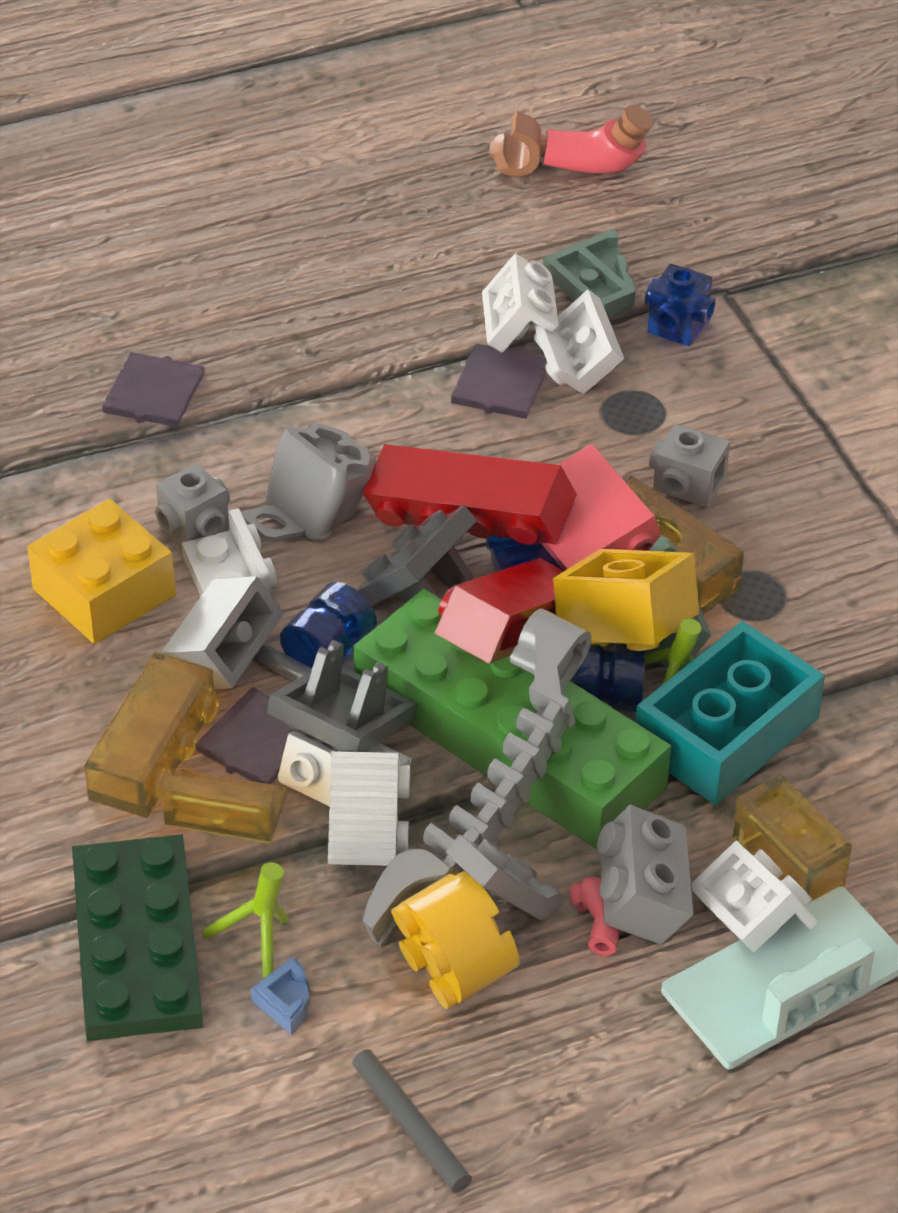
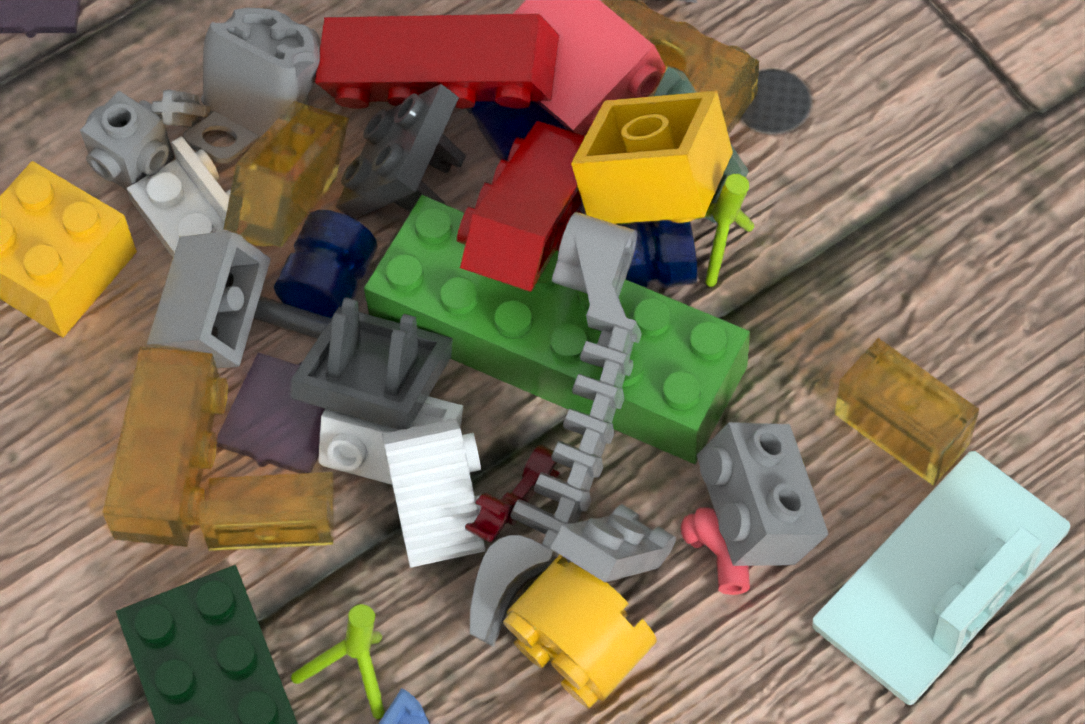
camera: 10 degrees left, 15 degrees up
(243, 488) = (180, 108): none -> light grey axle
(314, 548) = (285, 174): none -> clear yellow brick
(411, 829) = (497, 512): none -> dark red piece
(732, 710) = (798, 264): teal brick -> none
(749, 897) = (882, 495): white bracket -> none

